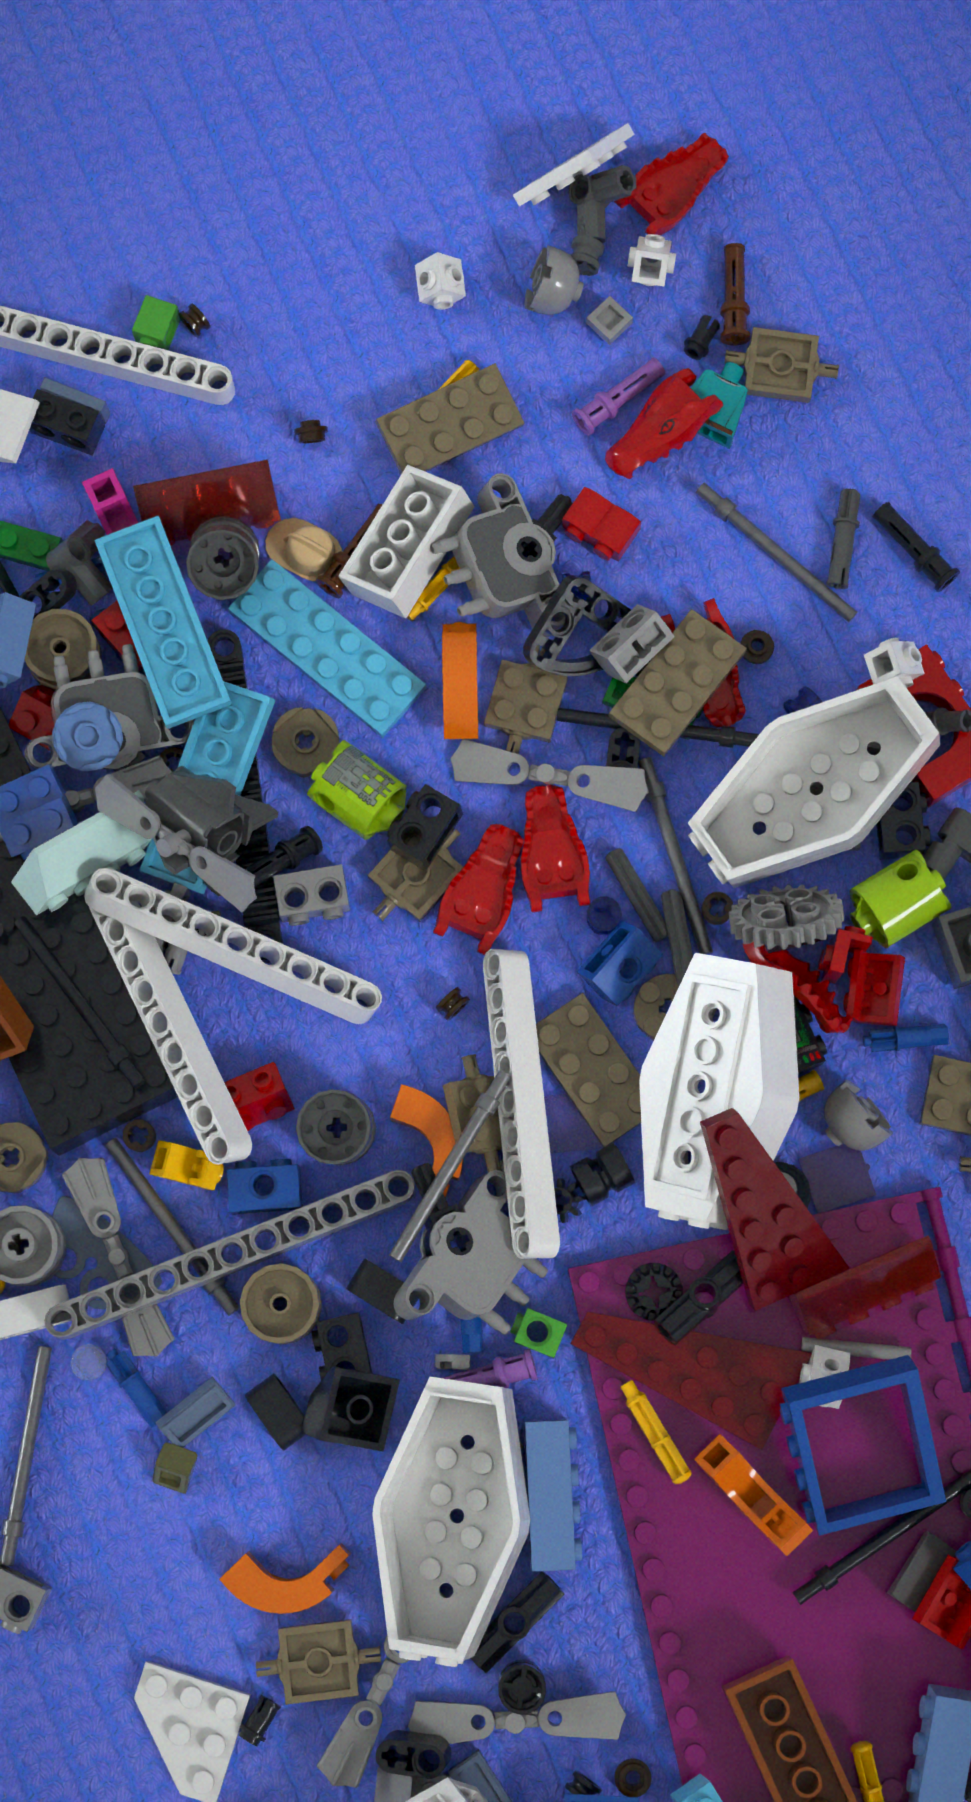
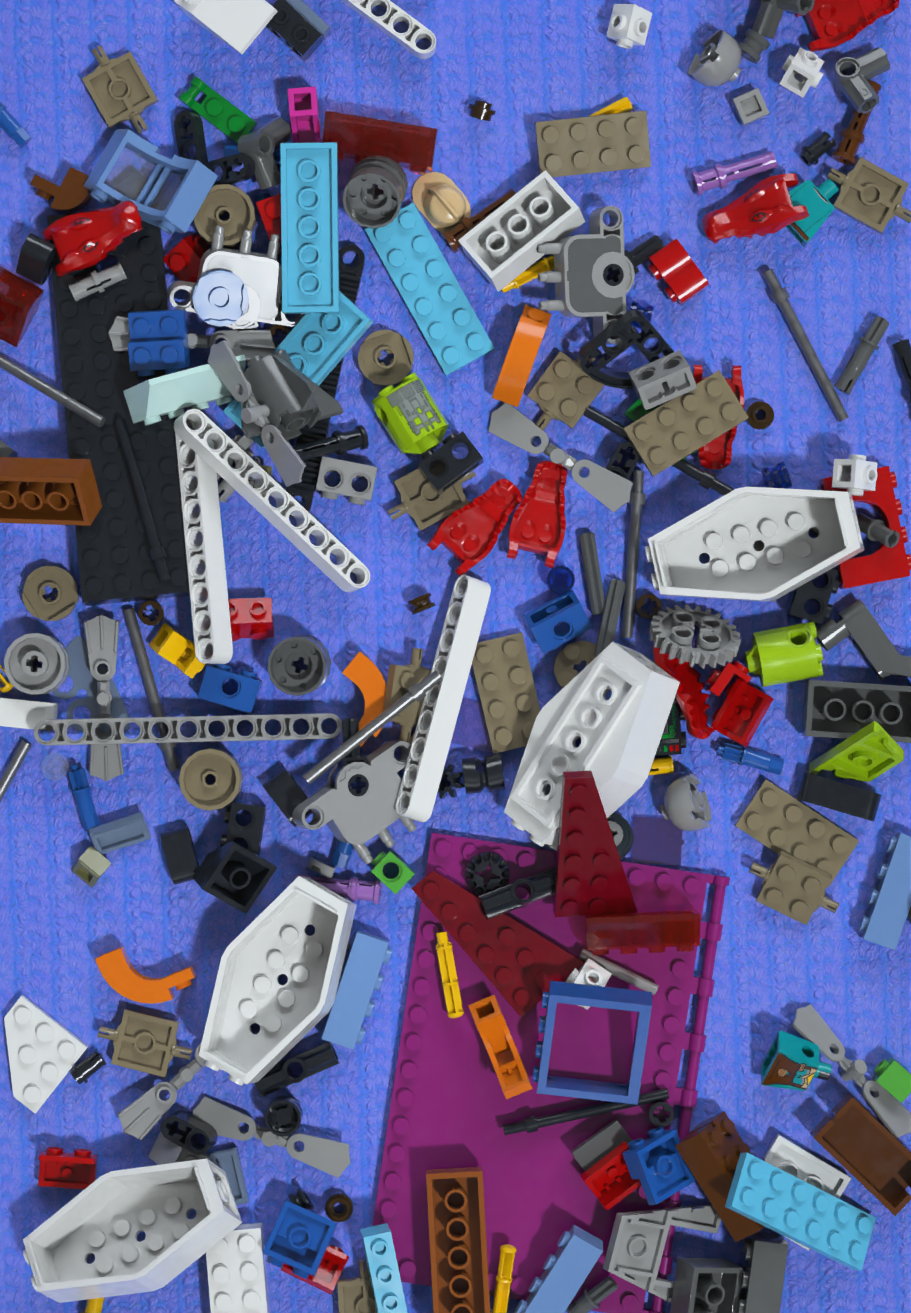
camera: 20 degrees right, 10 degrees up
(710, 244) = (852, 78): none -> dark grey piece

